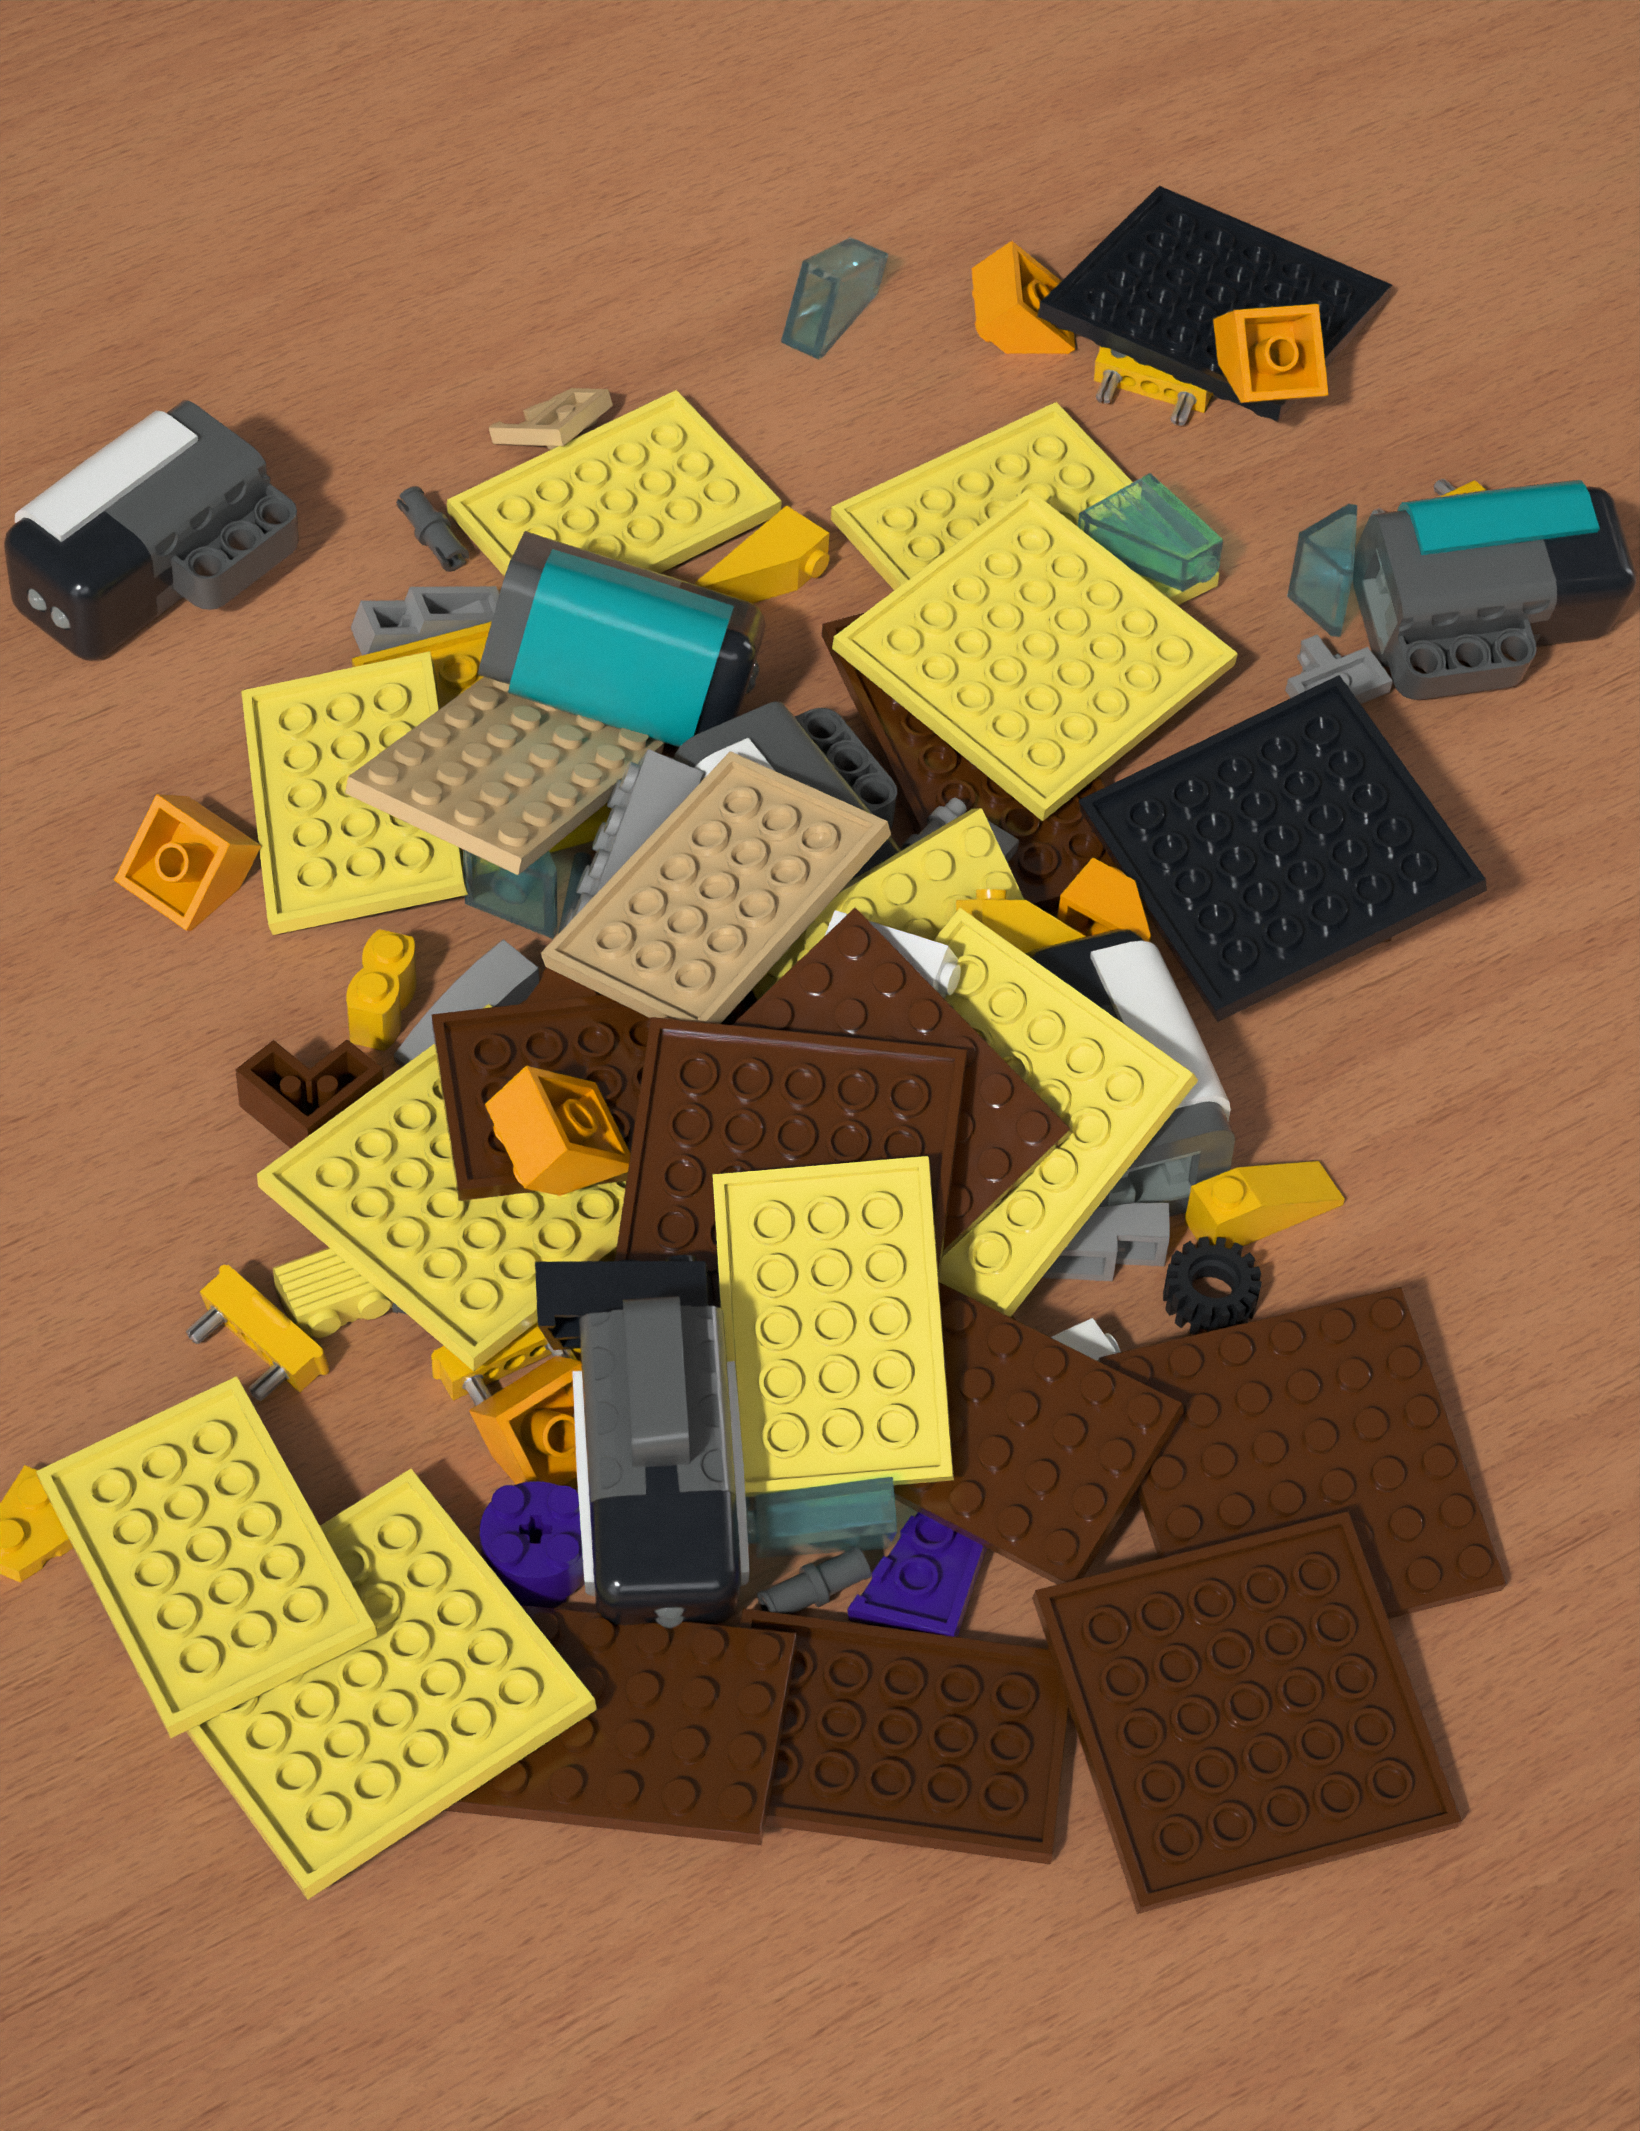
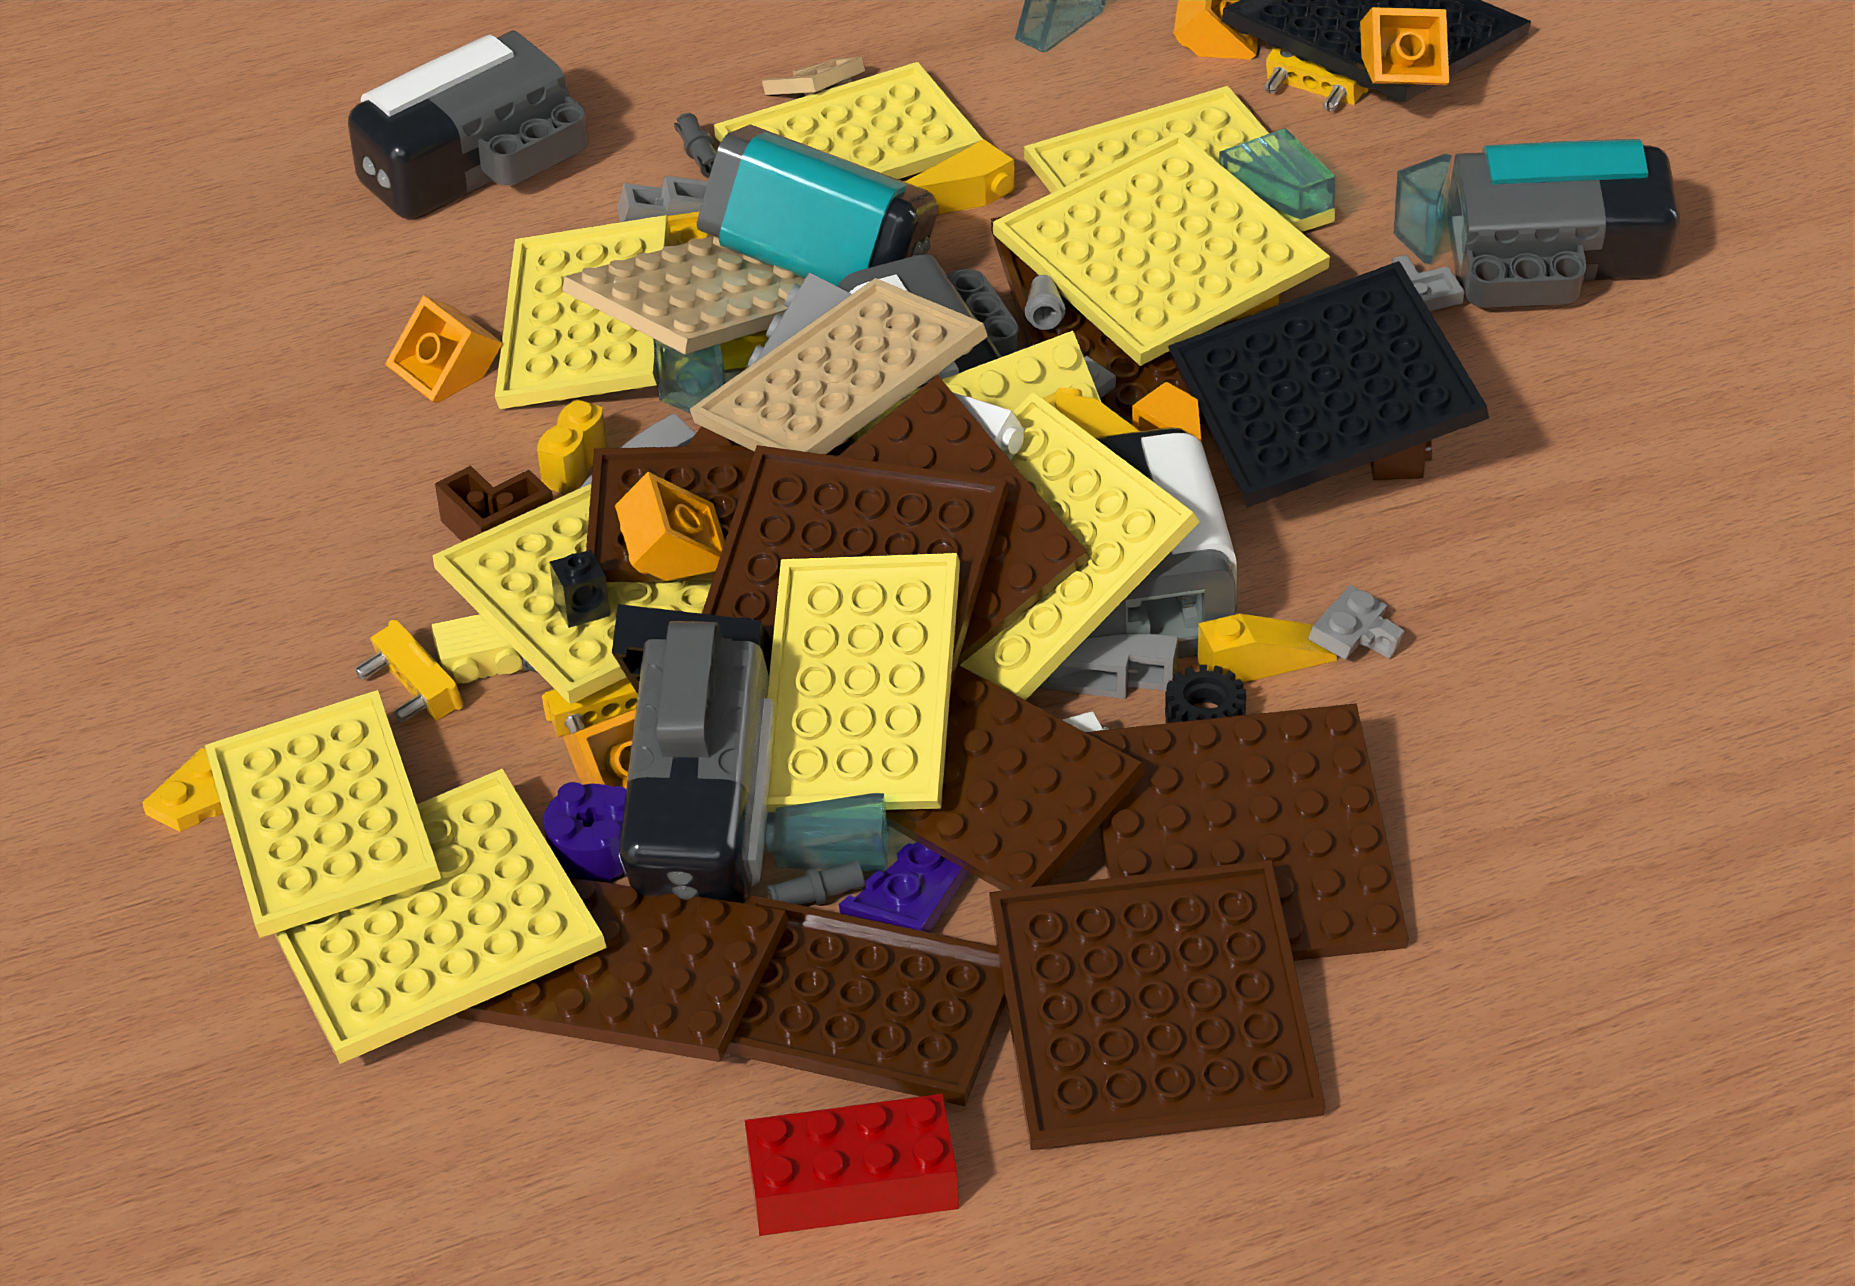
camera: 15 degrees right, 10 degrees down
(459, 1217) = (579, 588): none -> black brick
(915, 745) = (1044, 304): none -> light grey cone
(943, 1965) = (851, 1164): none -> red brick
(1360, 1159) = (1356, 621): none -> light grey hinge

